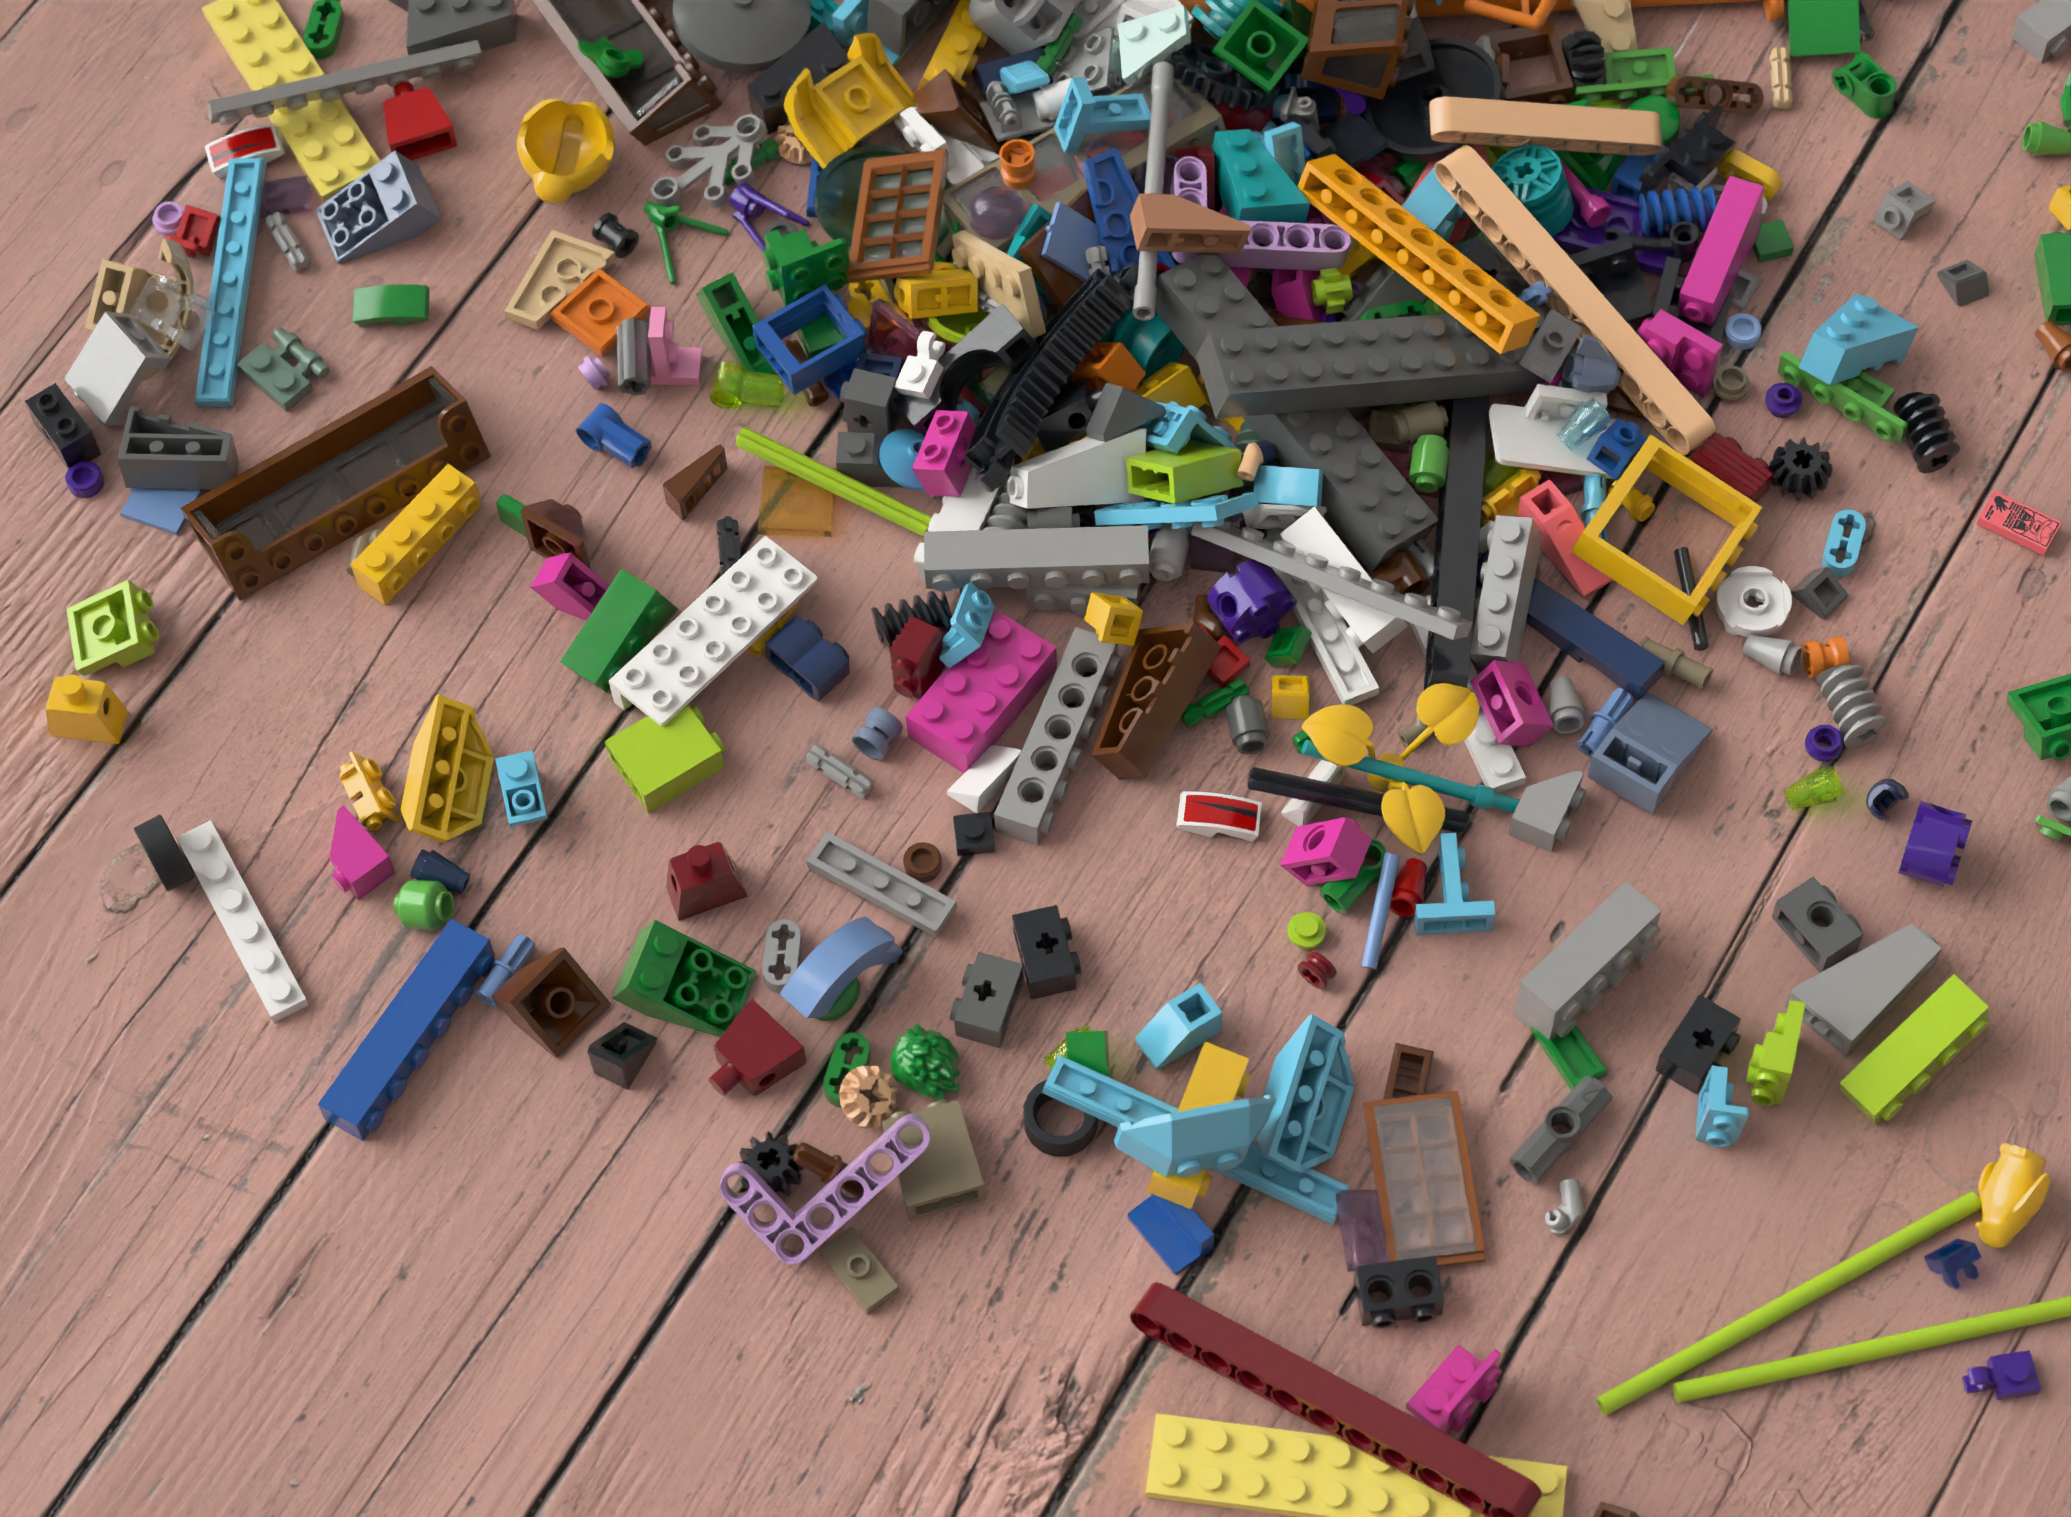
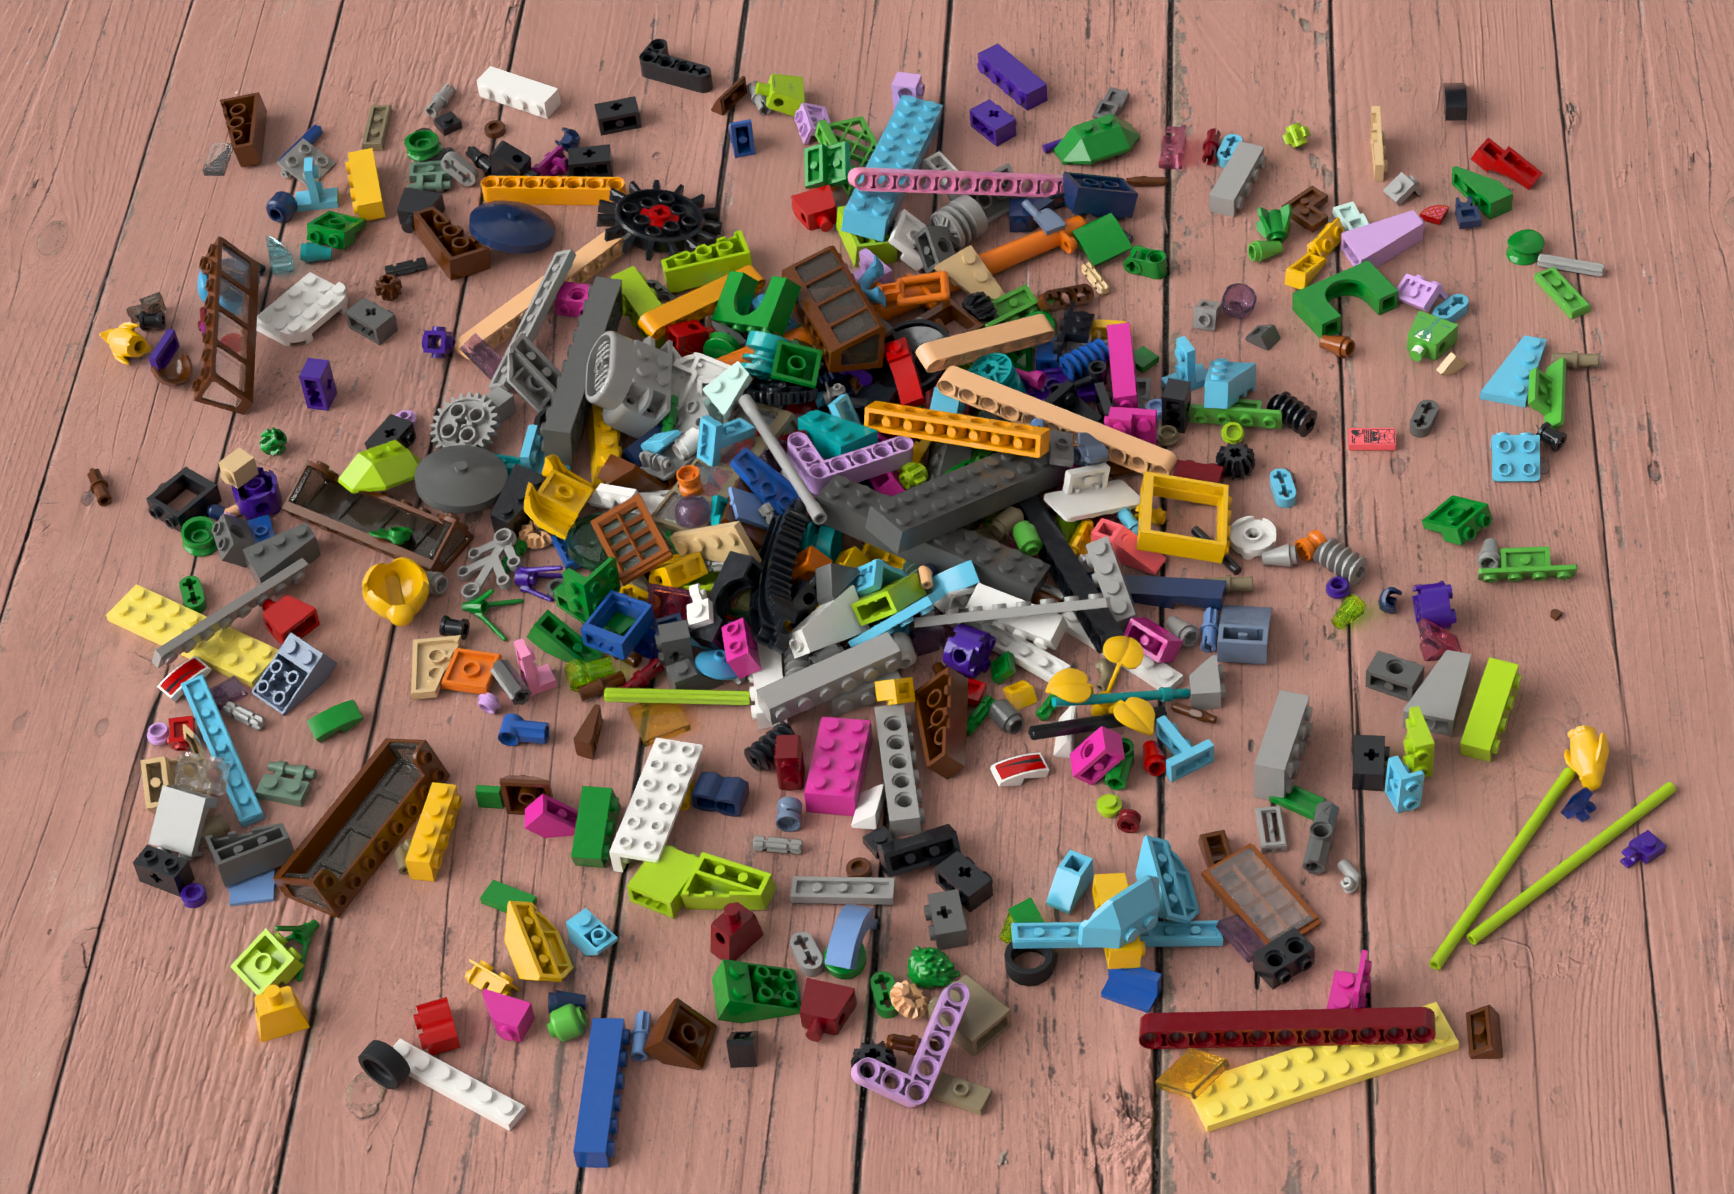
camera: 25 degrees left, 15 degrees down
(155, 395) = (214, 826): none -> dark tan brick
(179, 605) = (302, 935): none -> green plant
(263, 827) = (437, 1026): none -> red brick
(457, 678) = (499, 894): none -> green tile
(628, 152) = (437, 582): none -> light grey cone
(728, 543) = (631, 758): black axle -> none
(731, 803) = (722, 882): none -> lime wedge
(750, 415) = (598, 686): none -> reddish brown axle
(809, 429) = (642, 678): none -> dark red pin
(967, 625) = (812, 730): medium azure bracket -> none
(1010, 876) = (918, 850): none -> black piece
(1170, 1404) = (1192, 1073): none -> clear yellow tile
(1180, 225) = (816, 464): nougat slope -> none
(1380, 911) = (1146, 774): medium blue bar -> none
(1407, 124) = (905, 372): none -> red slope
(1493, 1106) = (1273, 845): none -> light grey tile
(1507, 843) = (1200, 715): none -> reddish brown piece
(1584, 424) = (1104, 481): clear light blue cone -> none
(1624, 441) = (1129, 484): blue brick -> none
(1764, 341) = (1176, 403): none -> black brick
(1779, 407) = (1202, 433): dark purple plate -> none
(1814, 297) = (1186, 366): none -> medium azure bracket
(1820, 592) = (1286, 517): dark grey slope -> none
(1824, 421) = (1232, 433): none -> lime plate
(1912, 900) = (1436, 640): none -> clear pink slope
(1959, 209) = (1238, 300): none -> clear purple hair

